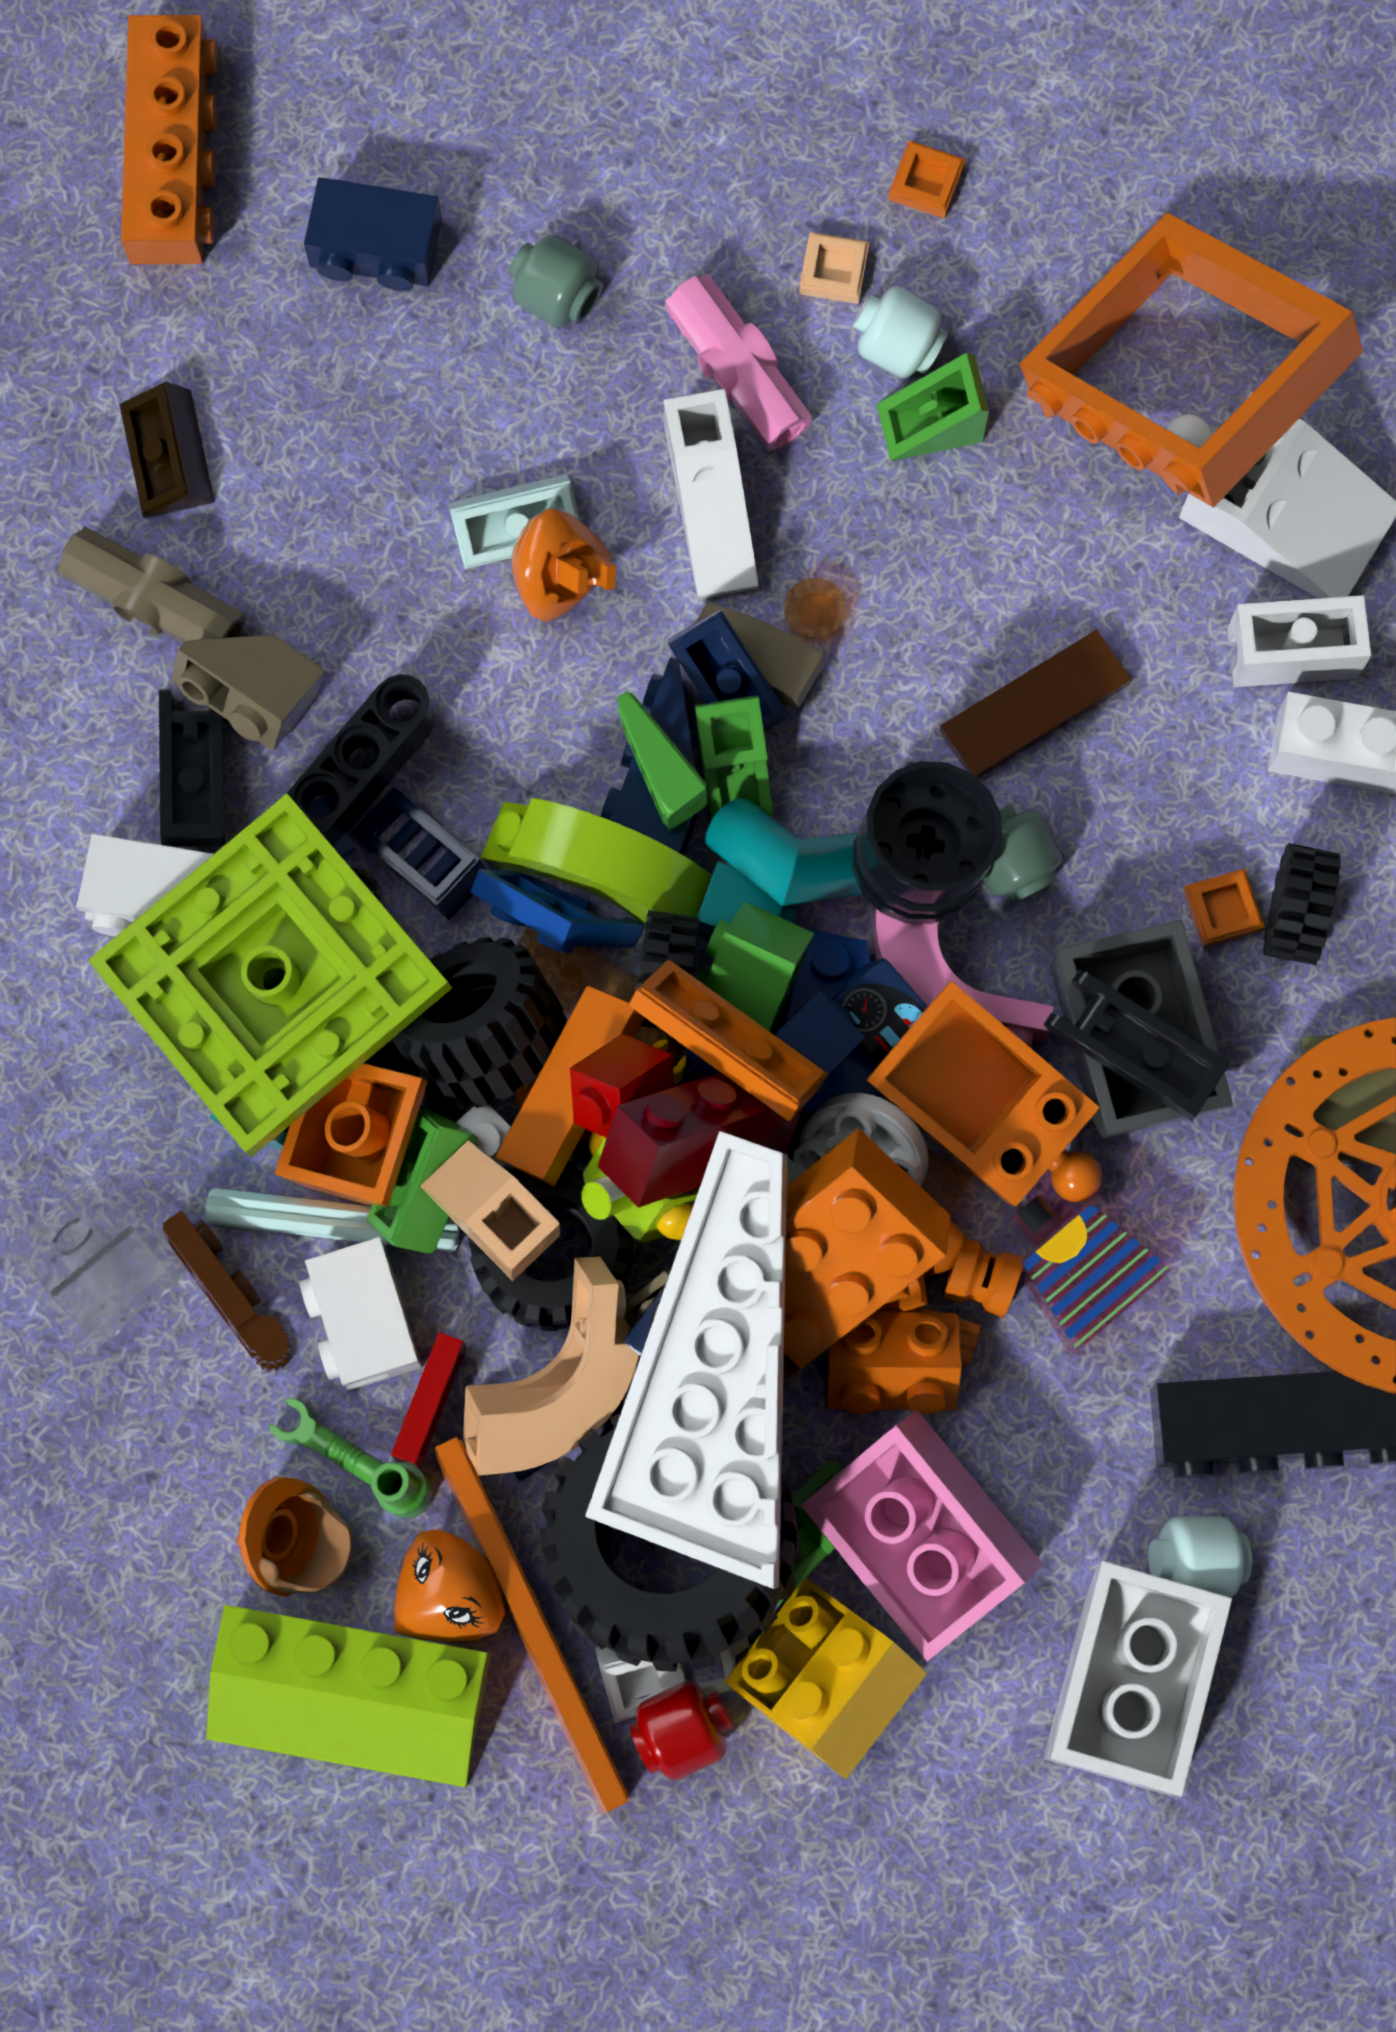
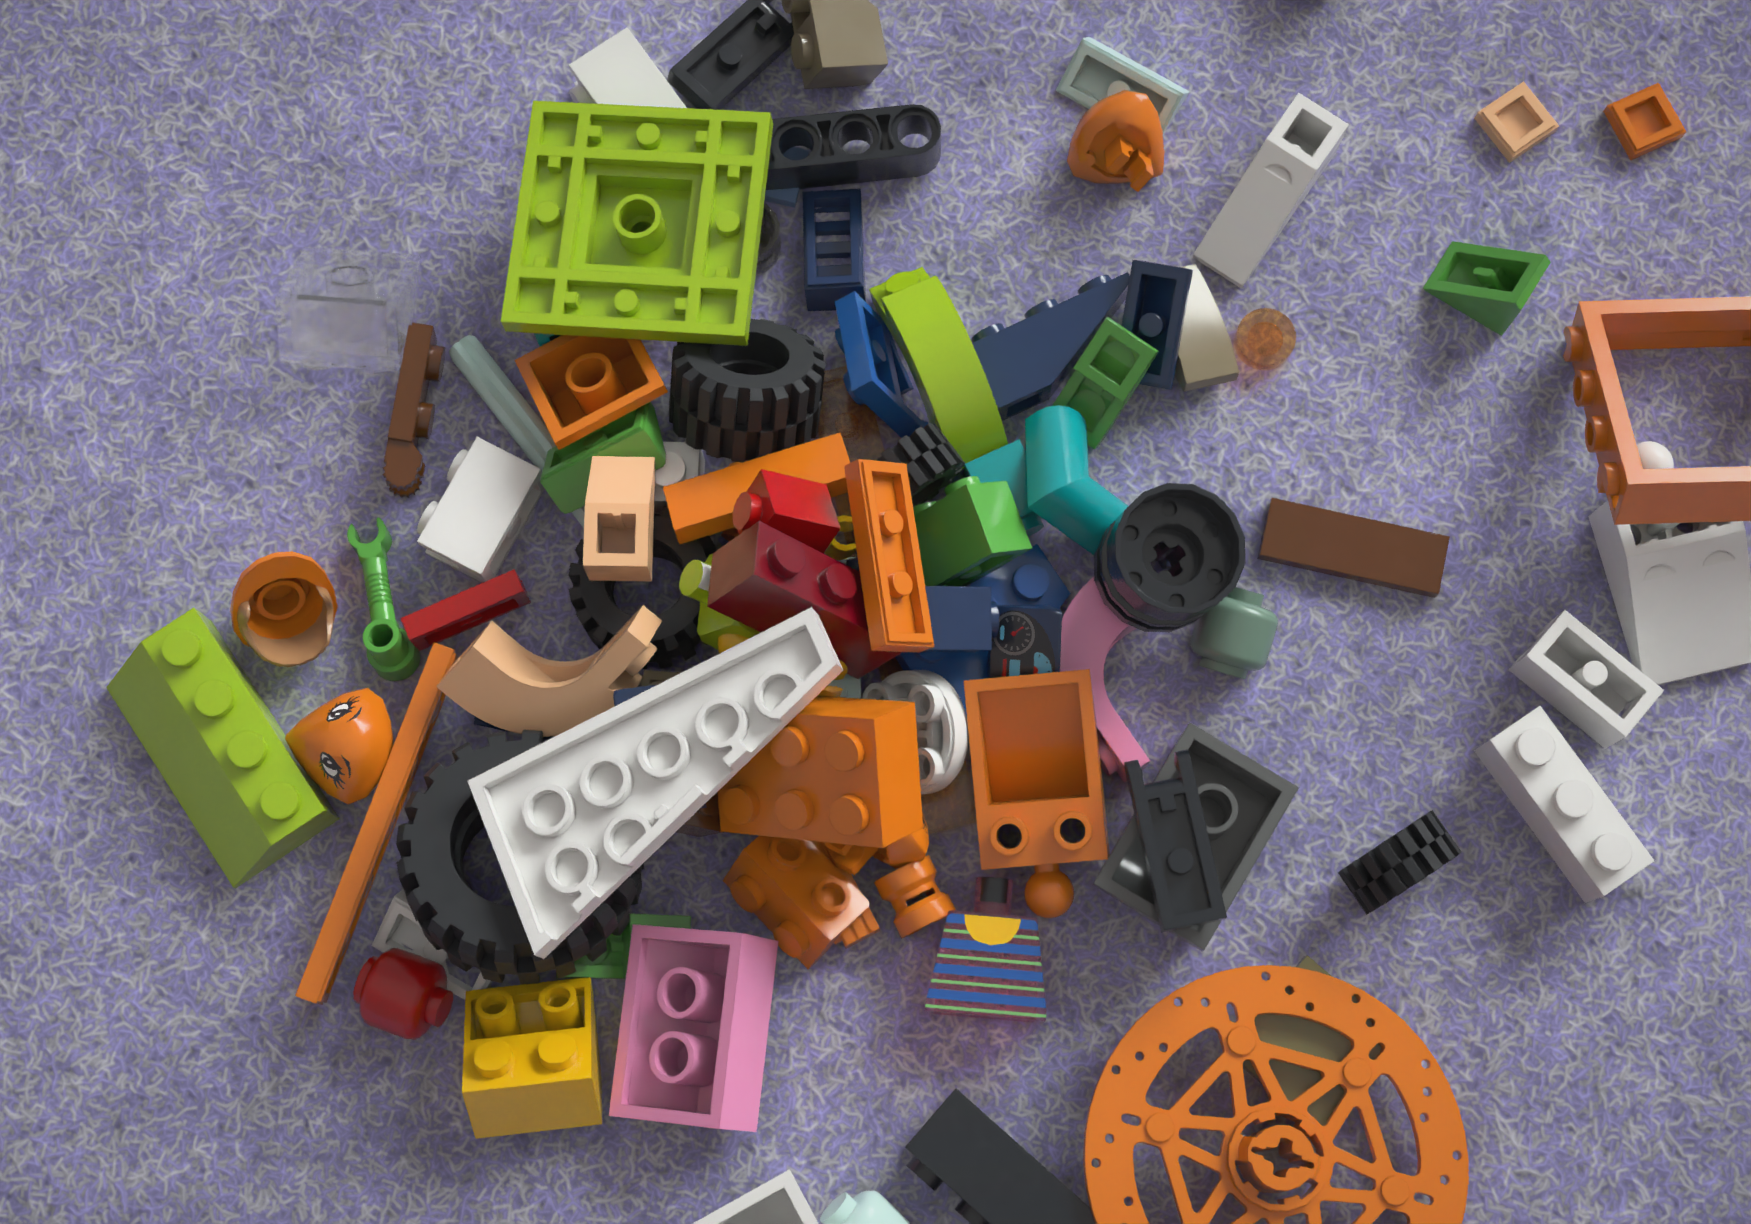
camera: 45 degrees right, 0 degrees up
(668, 775) = (1038, 350): bright green slope -> none
(738, 361) = (1383, 122): bright pink piece -> none
(899, 332) = (1516, 204): light aqua head -> none
(1223, 908) = (1344, 813): orange tile -> none

